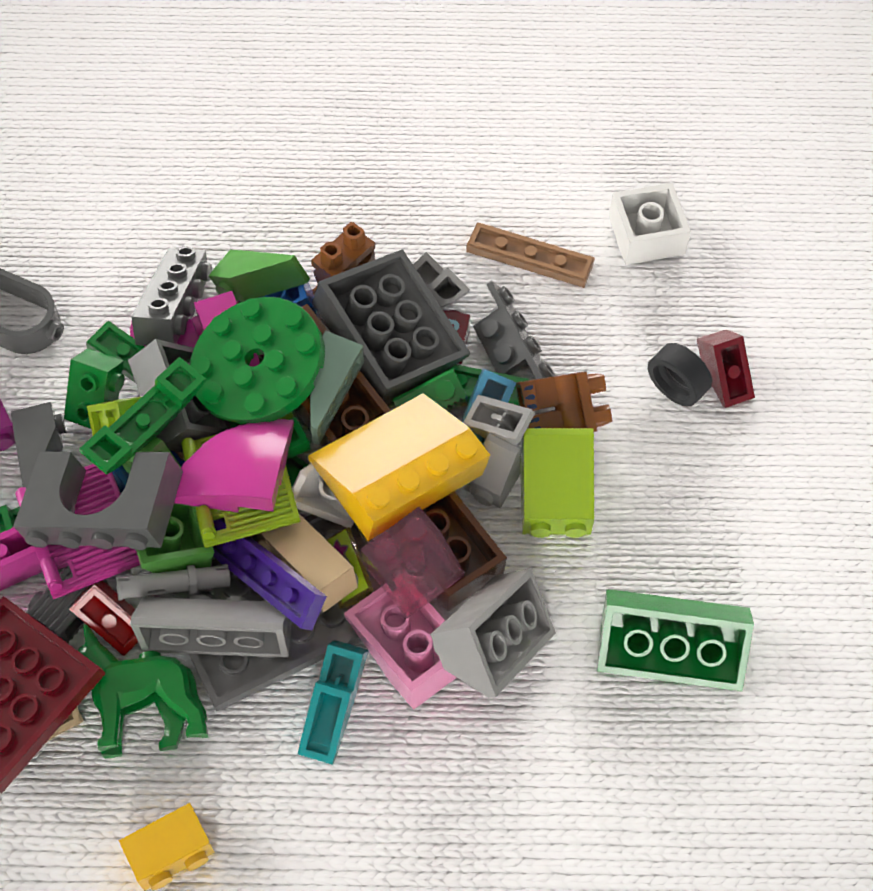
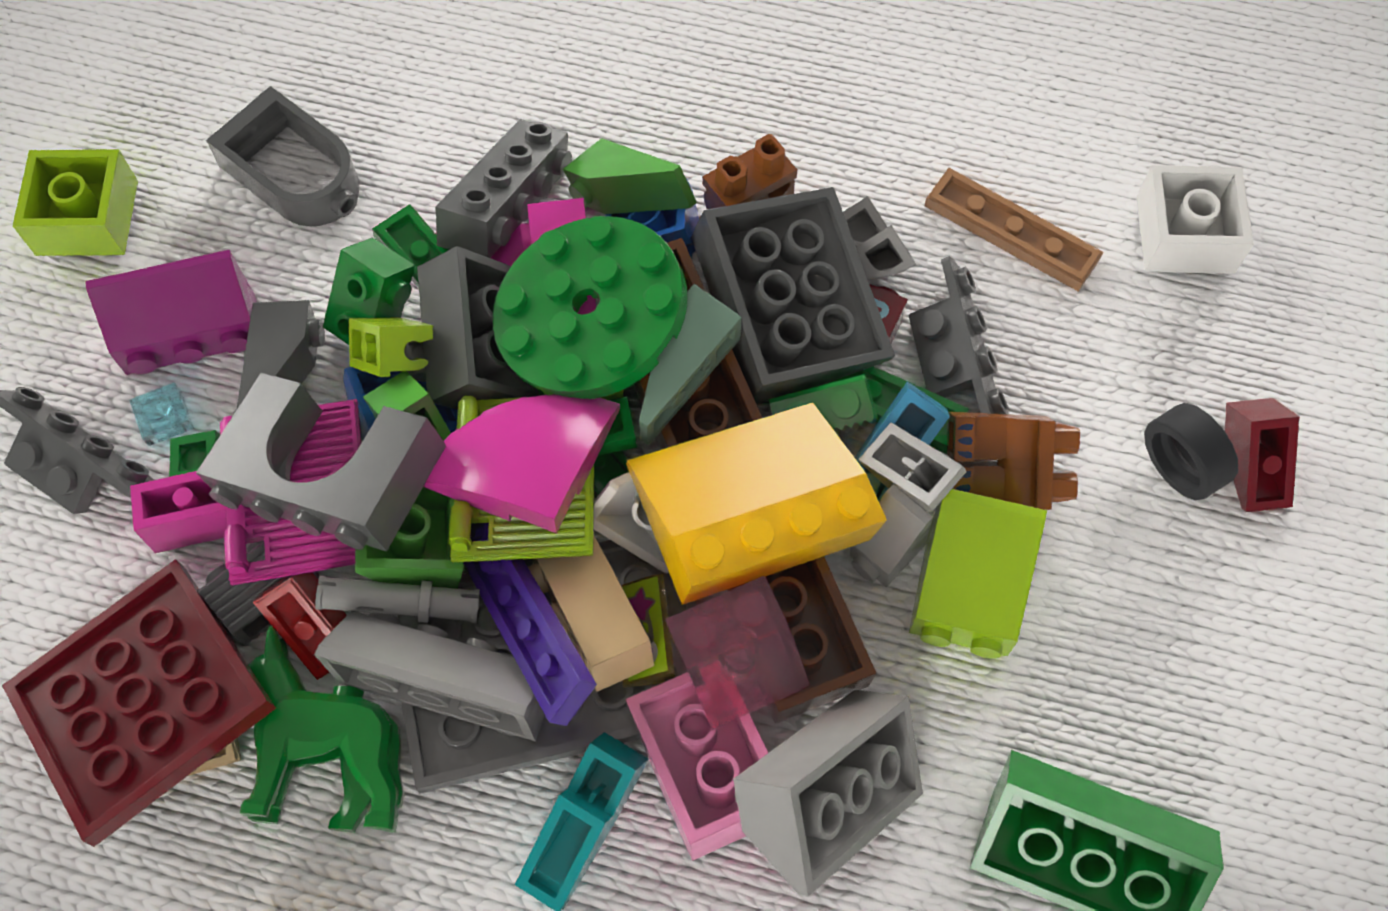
camera: 15 degrees right, 5 degrees up
(145, 419) = (408, 361): green slope -> none

